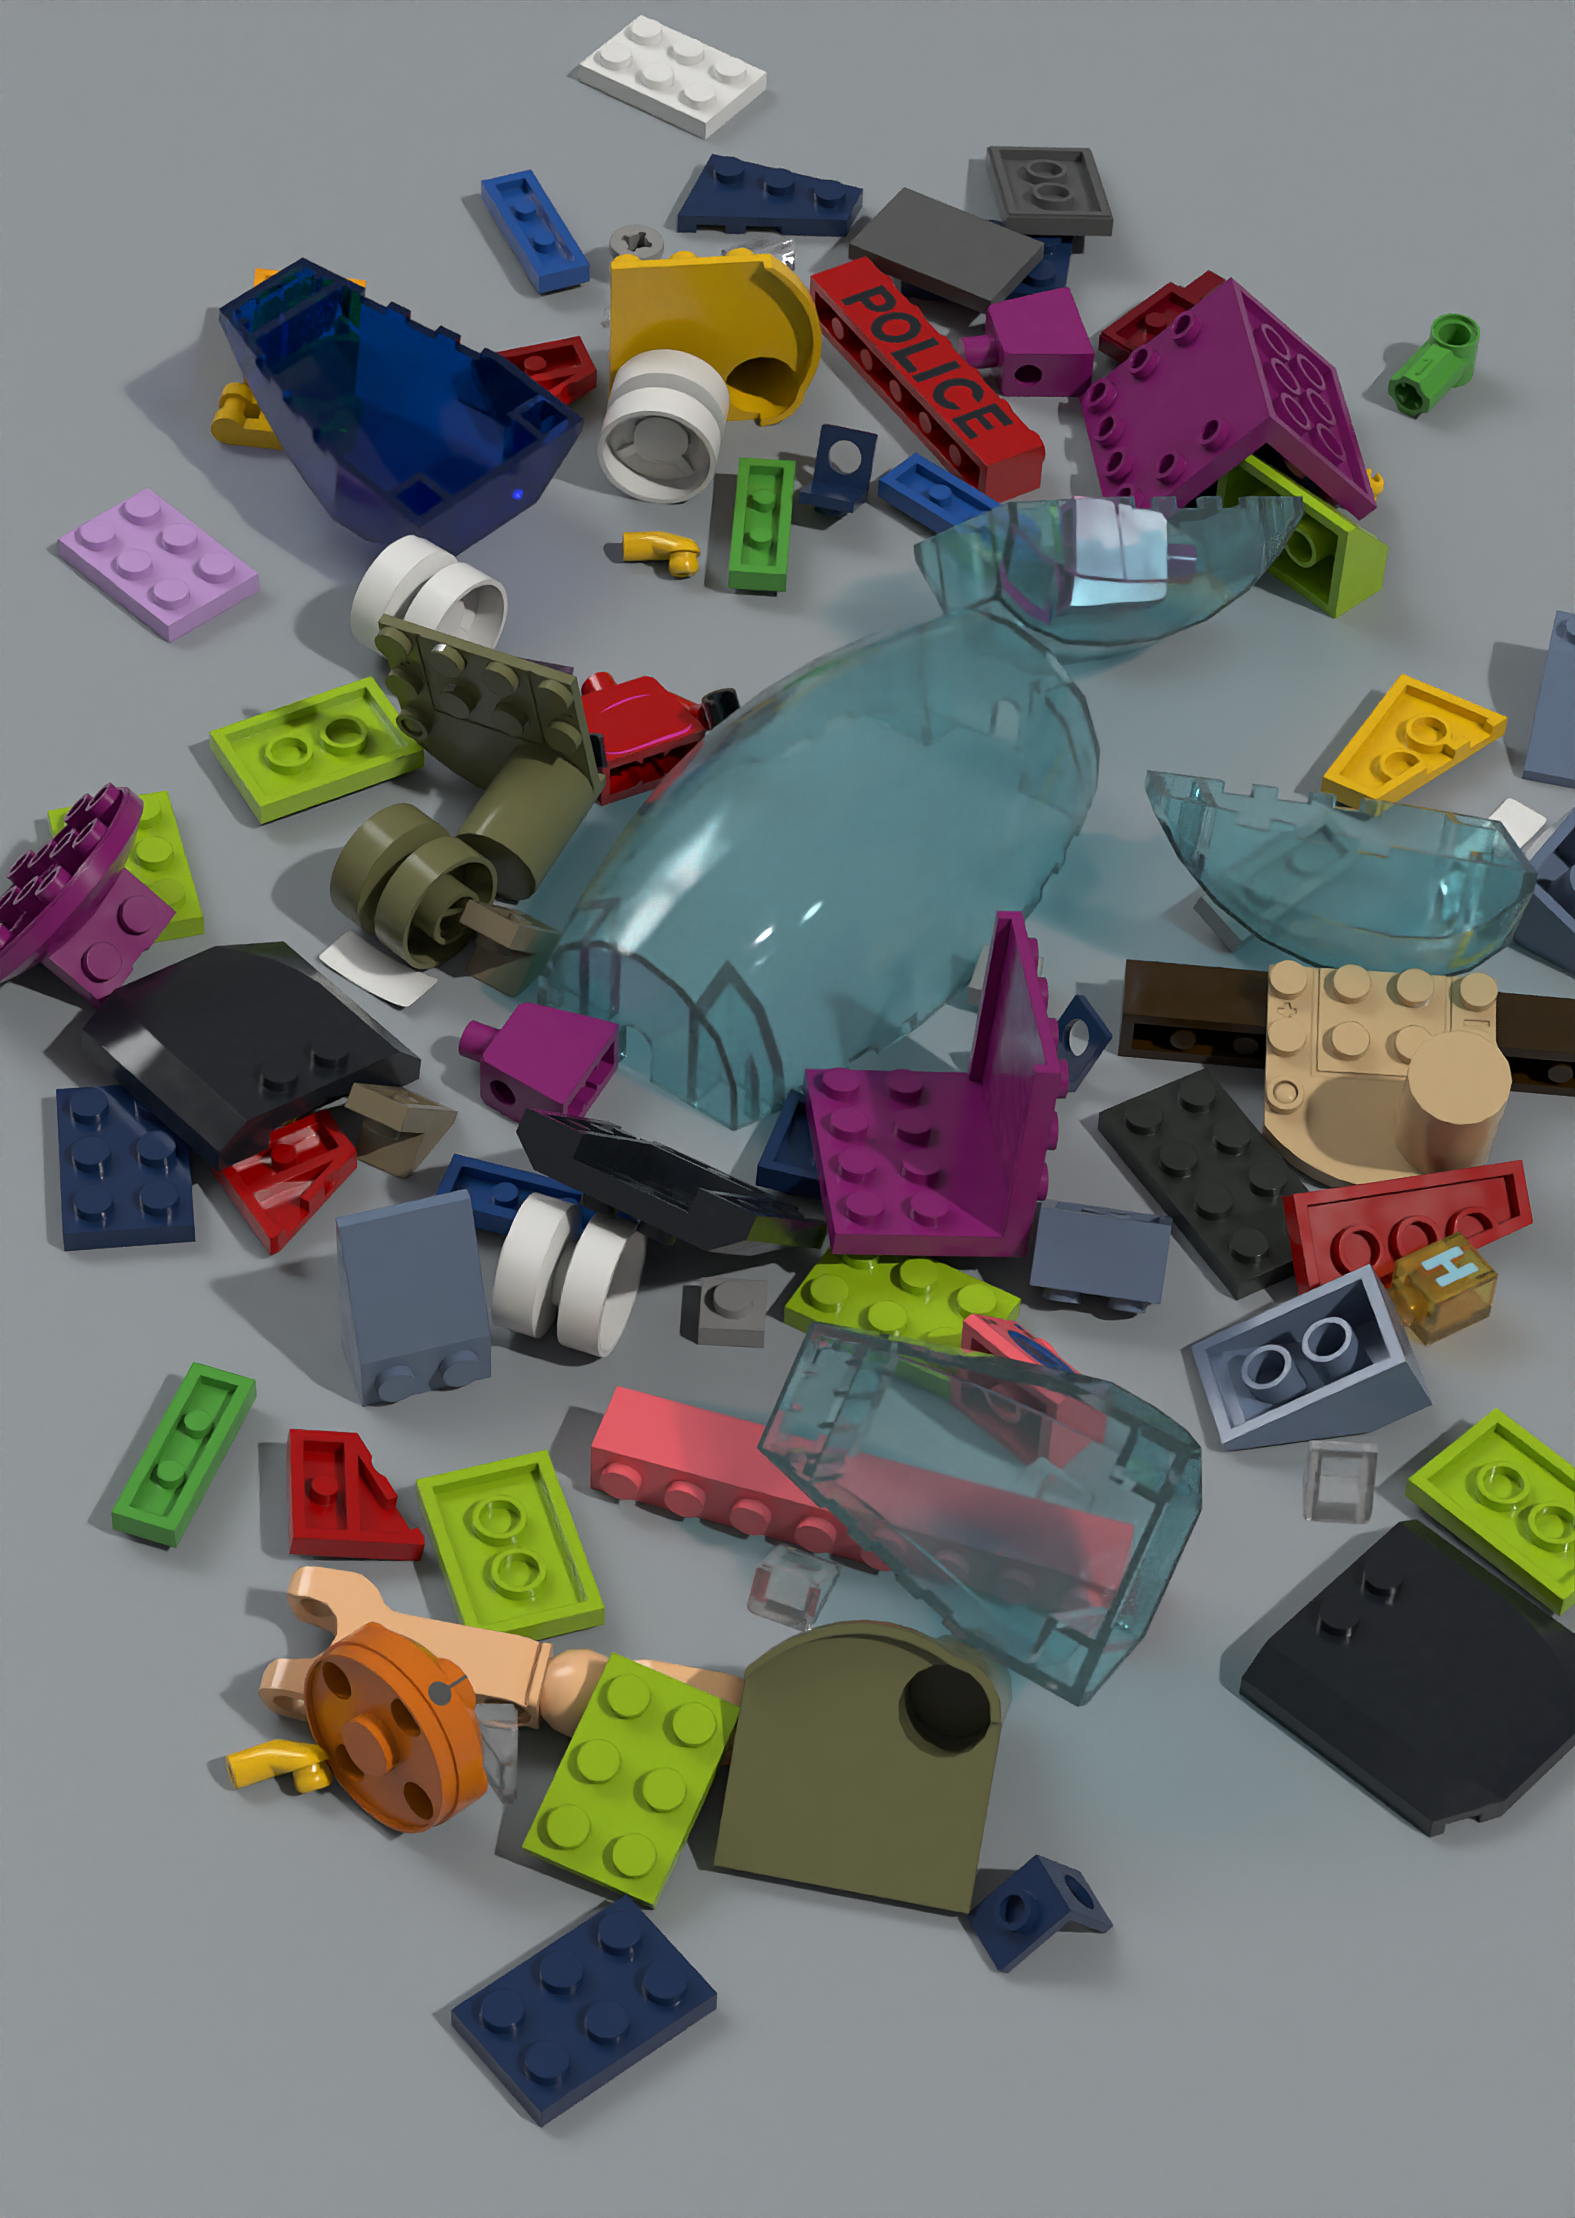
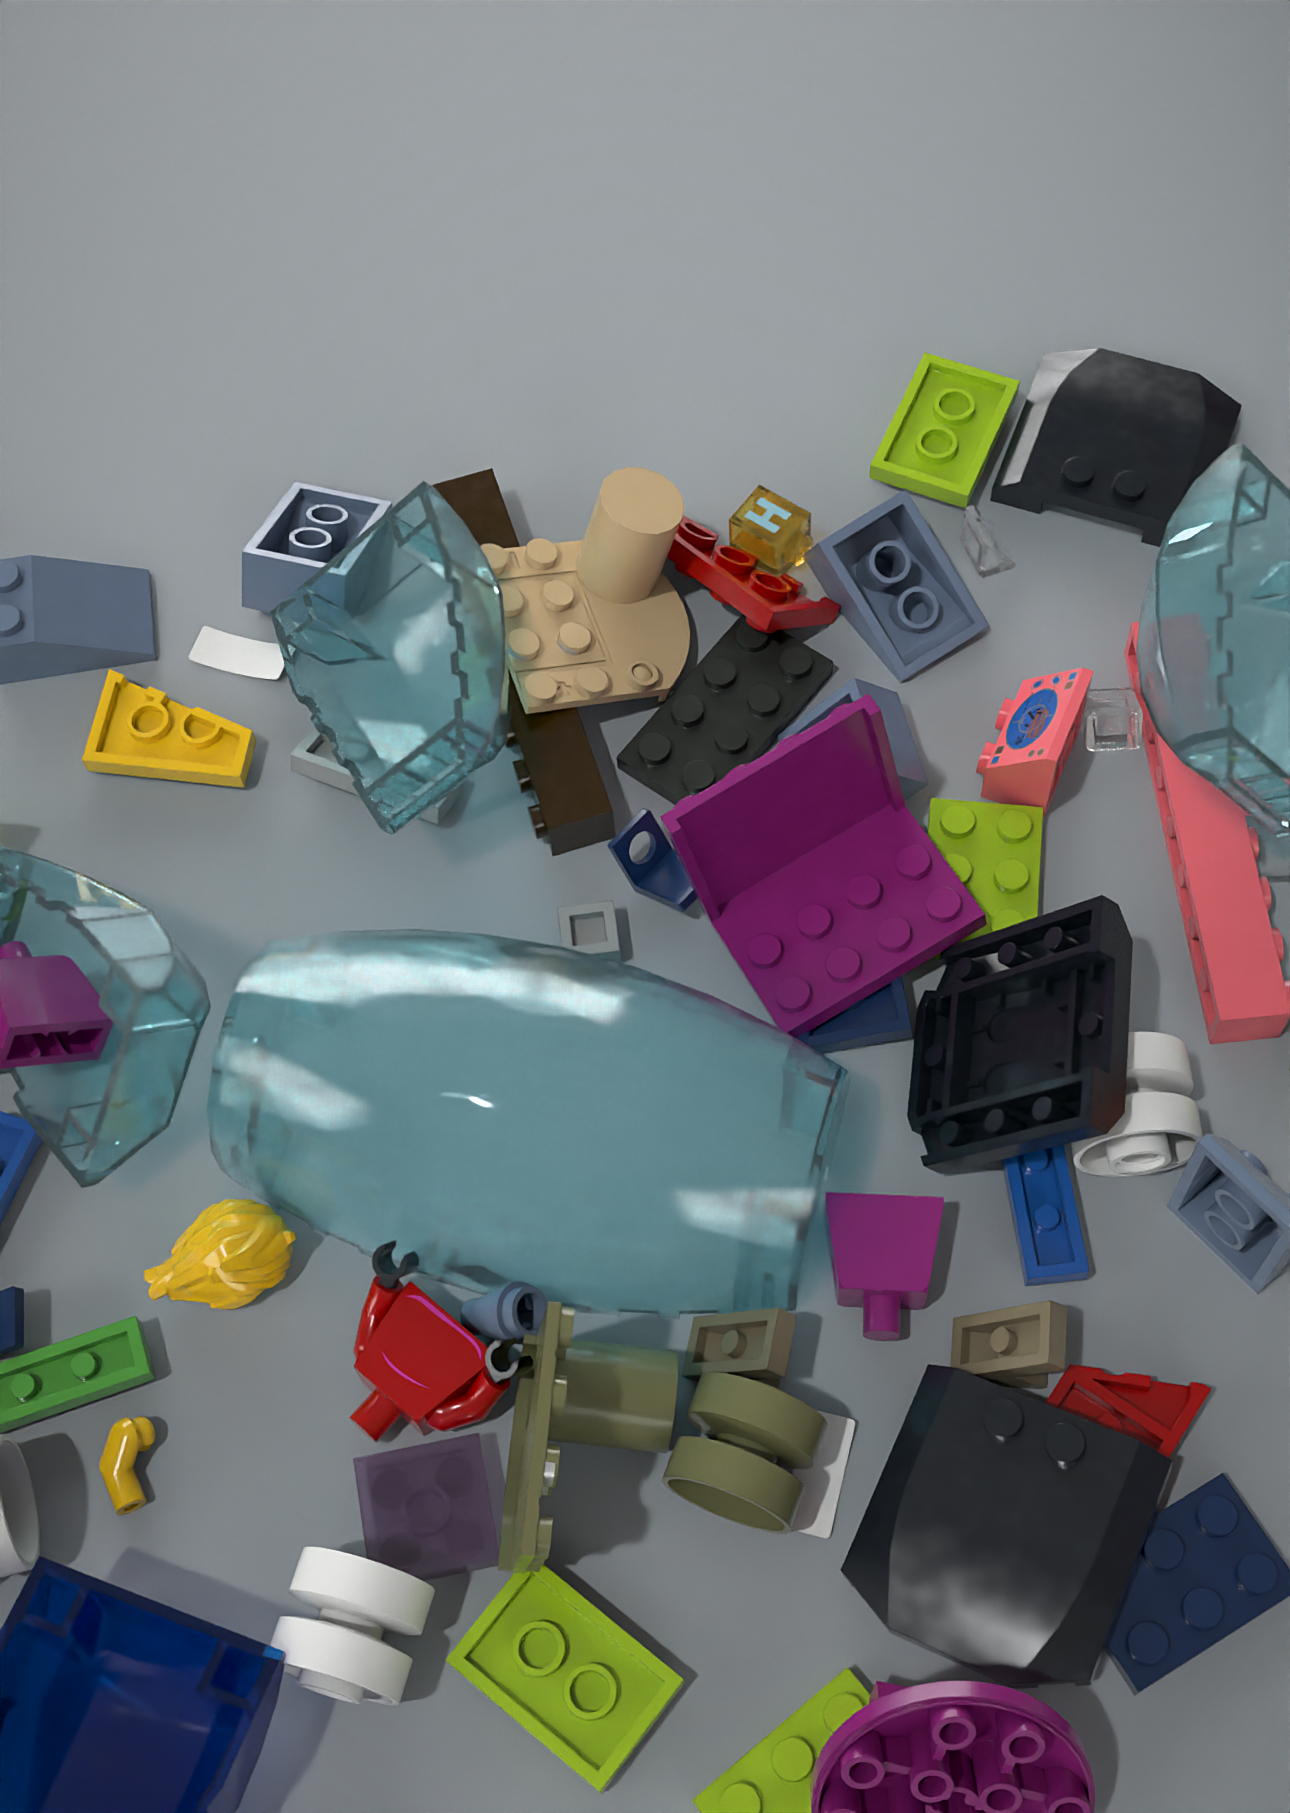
camera: 105 degrees left, 15 degrees up
(629, 786) = (506, 1312): none -> sand blue cone
(803, 632) = (225, 1256): none -> yellow hair

